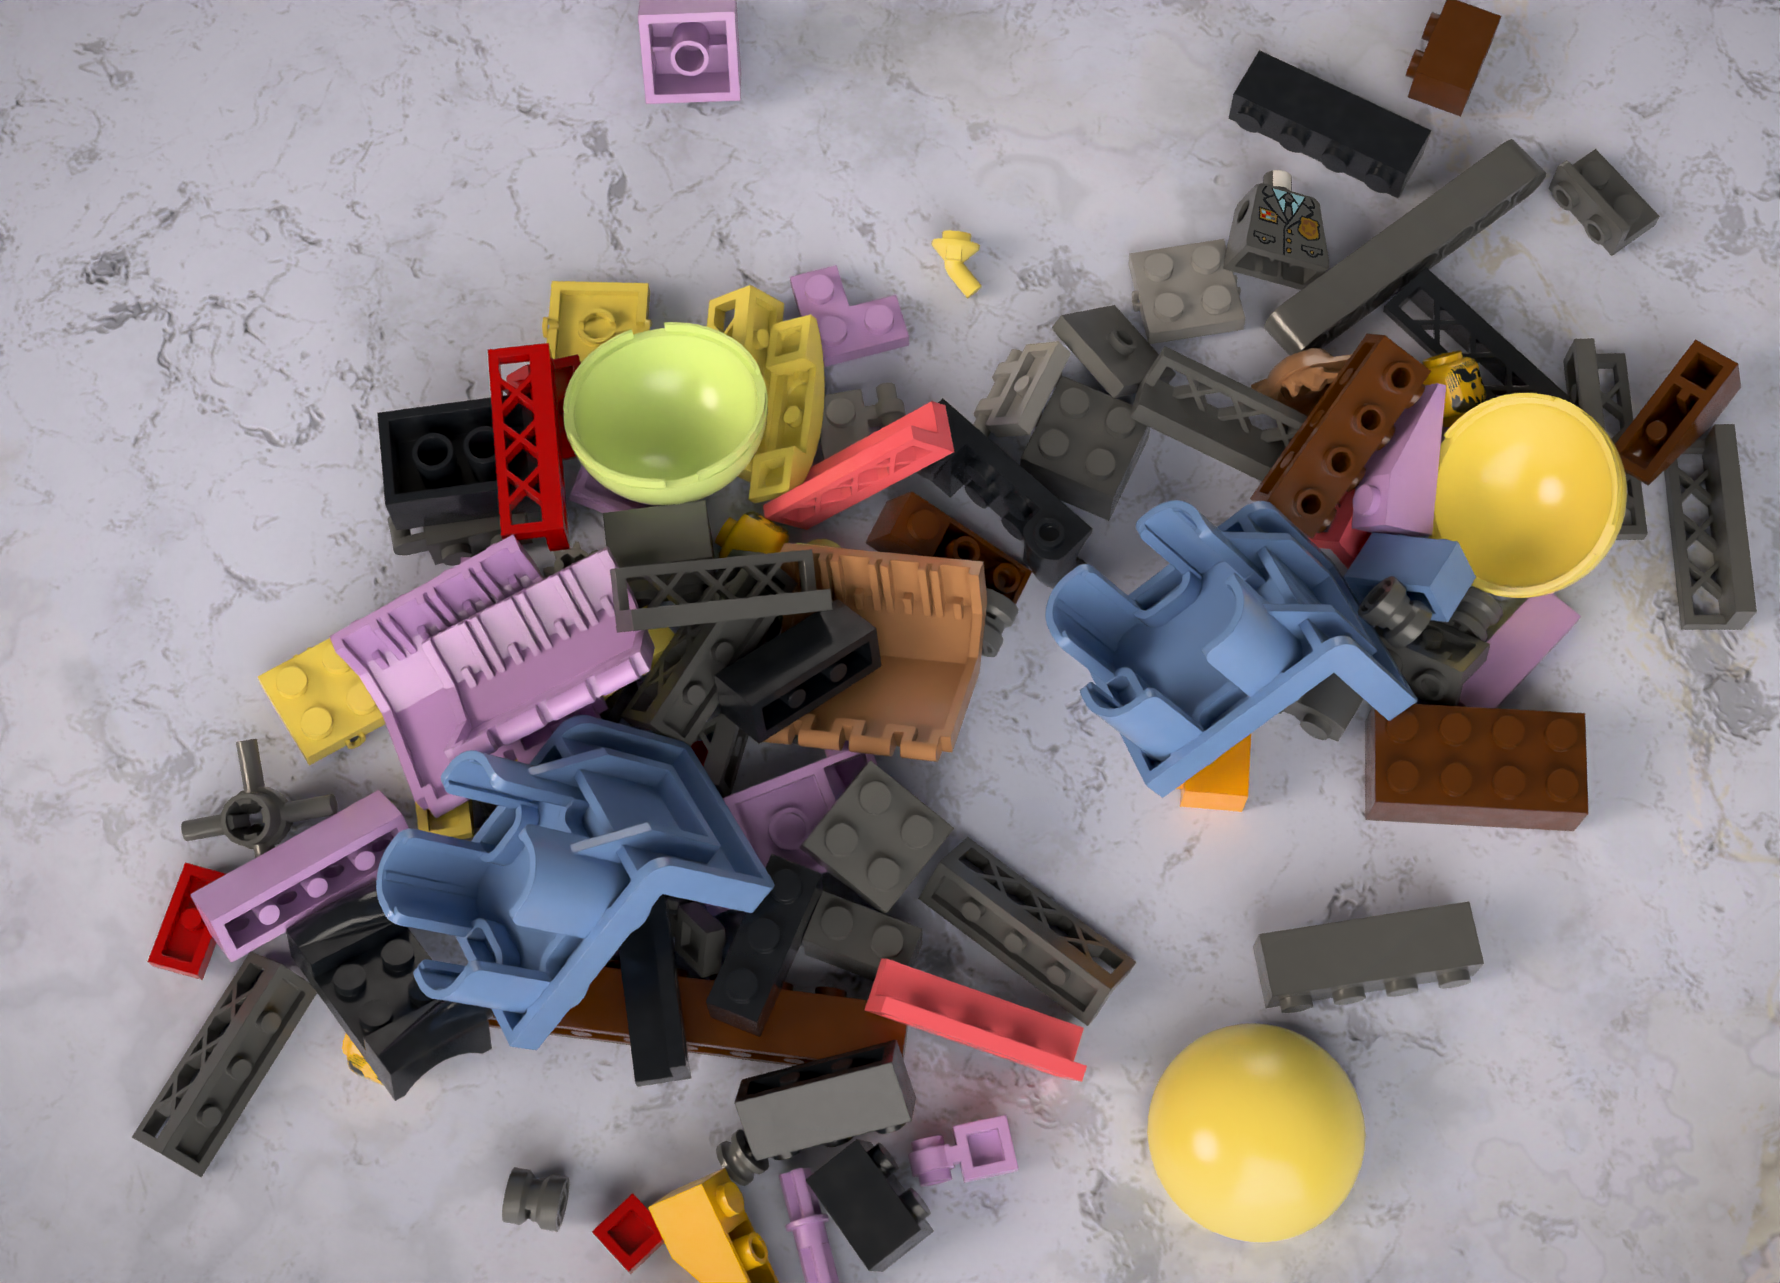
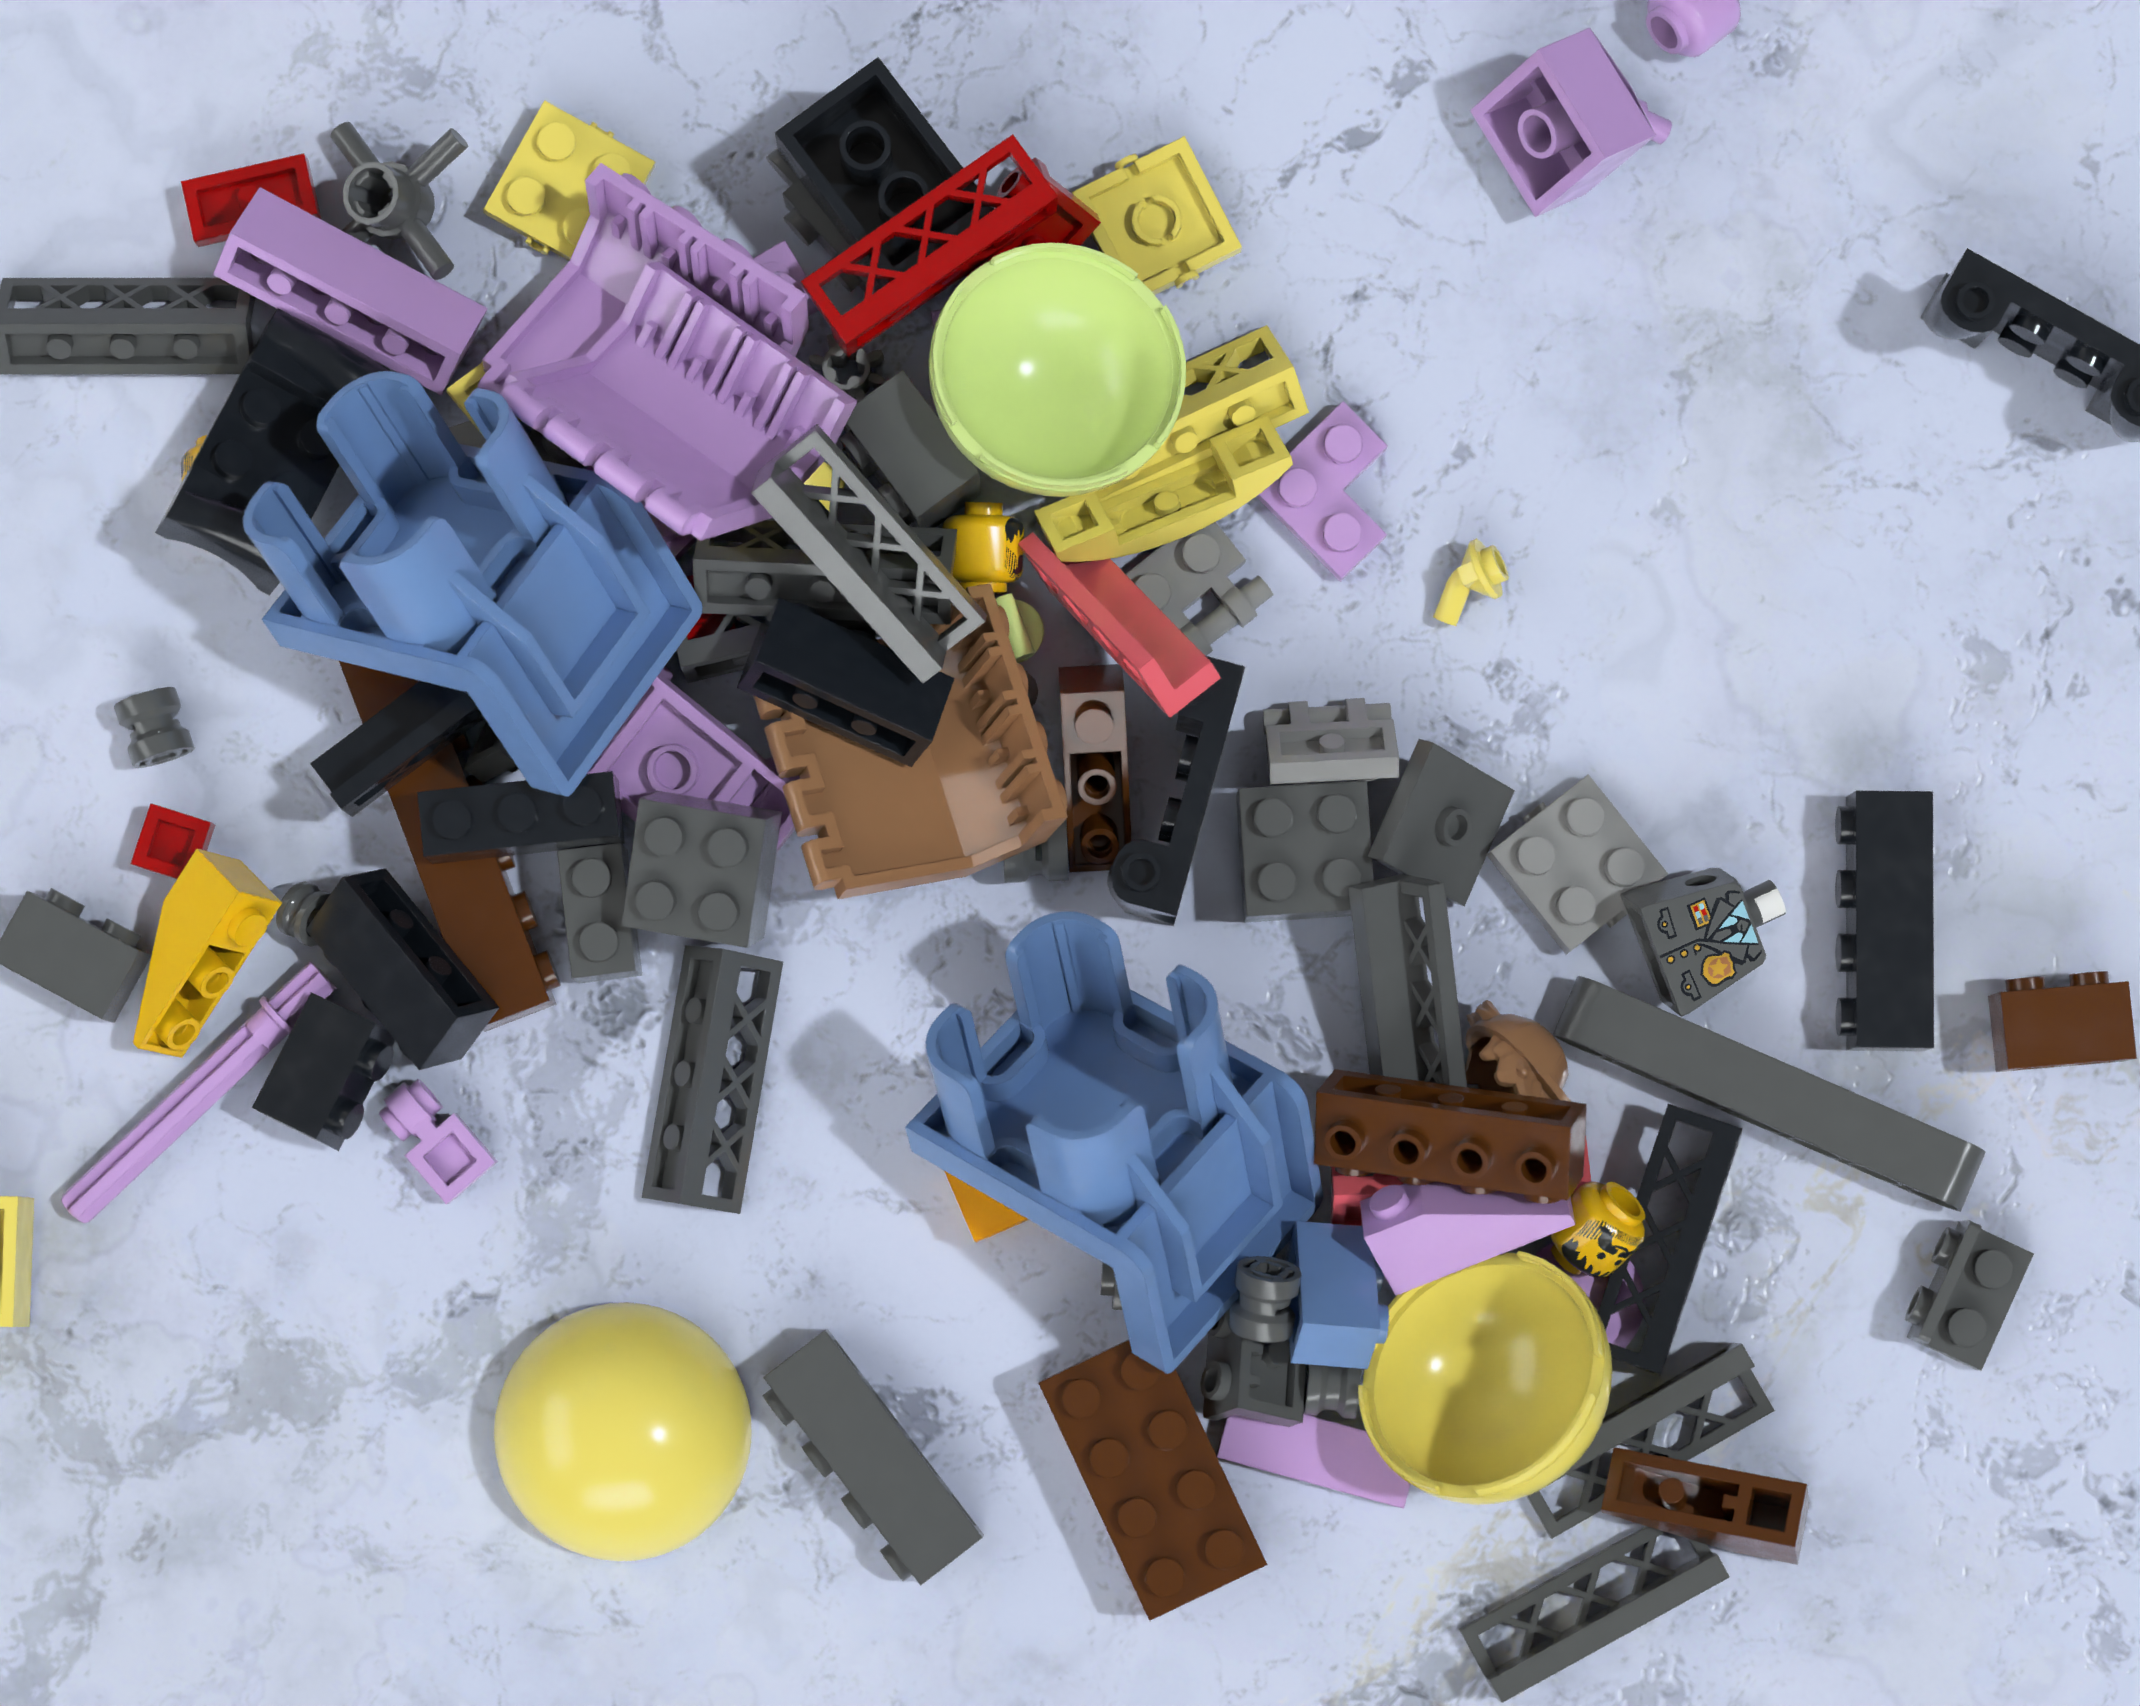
camera: 60 degrees right, 15 degrees up
(976, 1020) = (567, 1080): coral fence -> none

